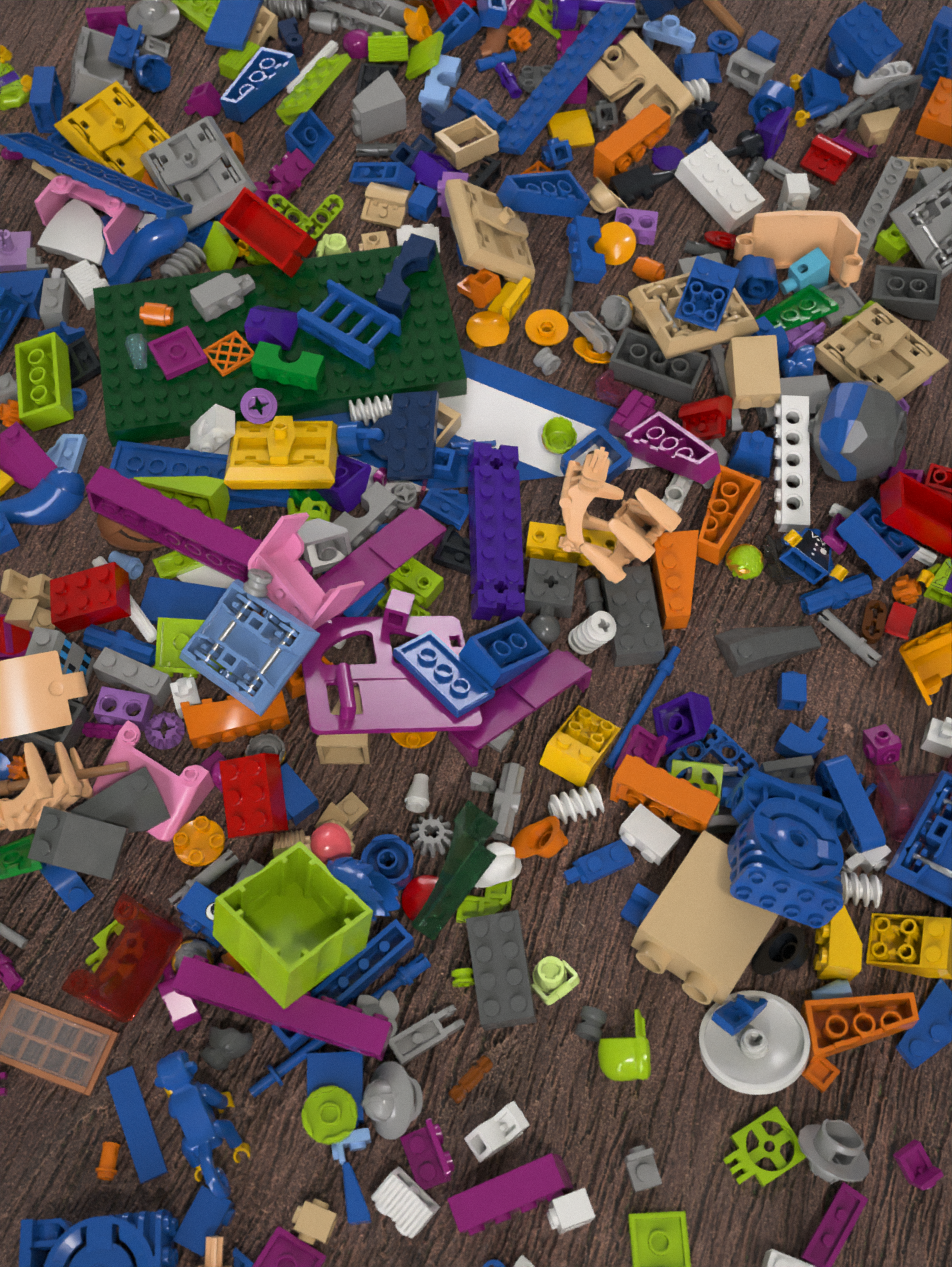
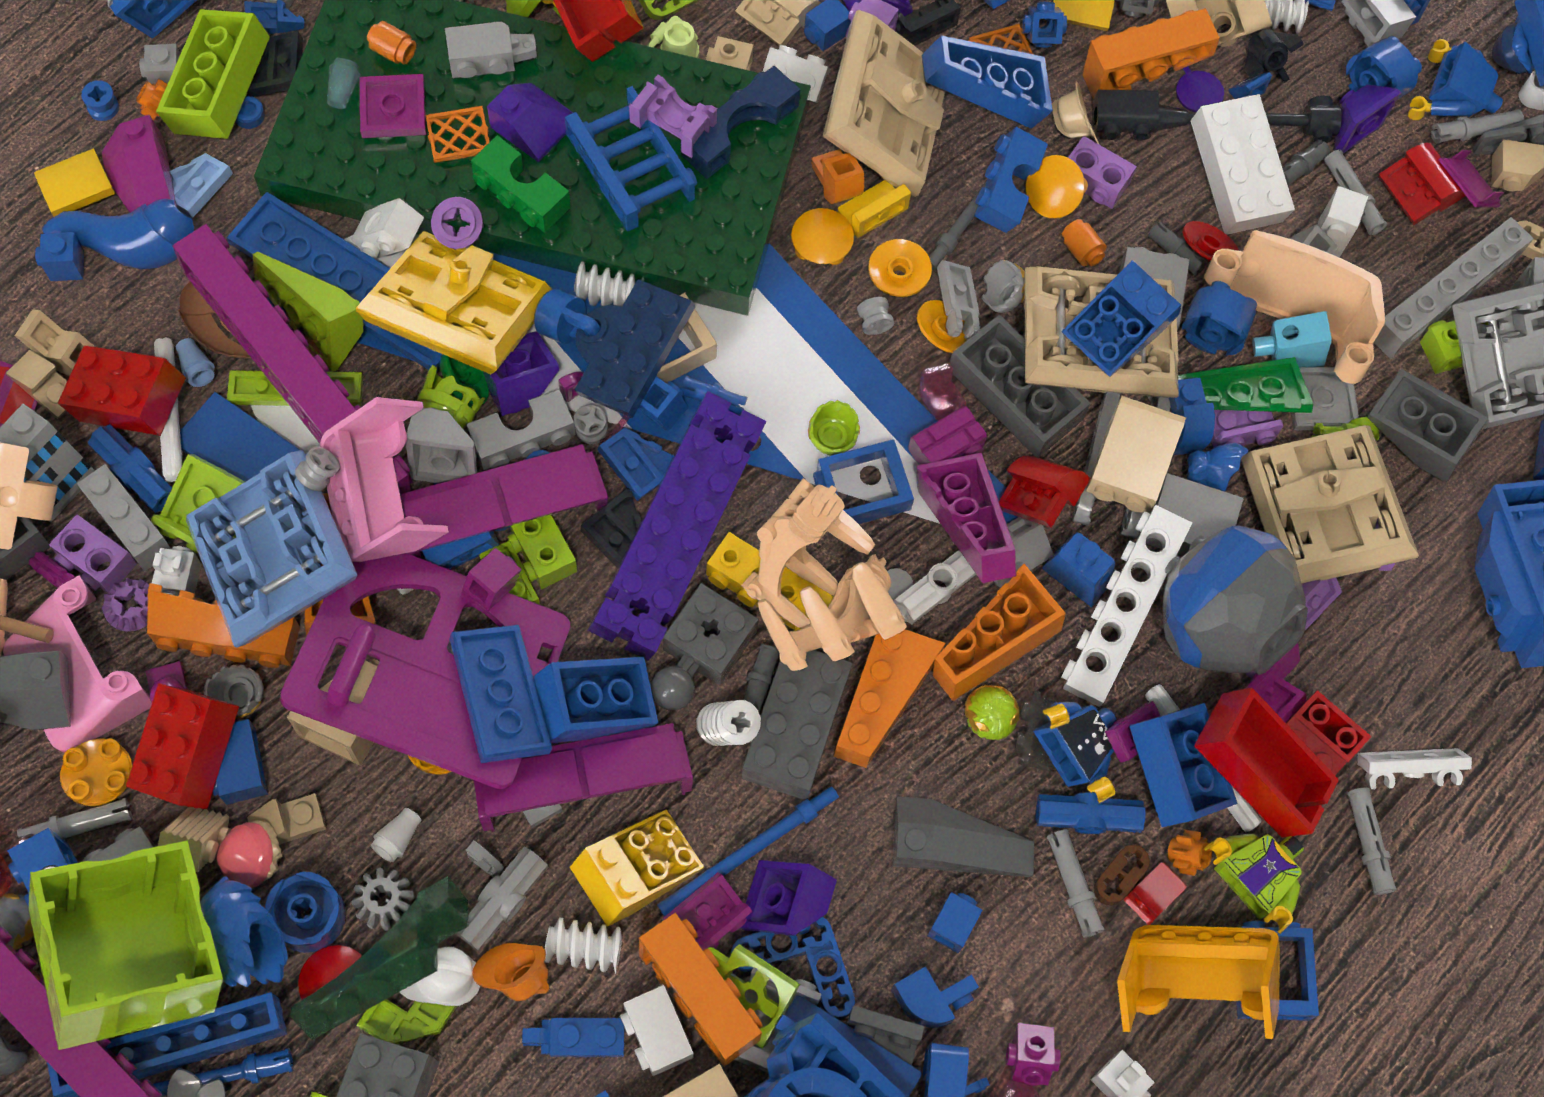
camera: 20 degrees right, 5 degrees up
(359, 284) = (667, 110): none -> medium lavender piece

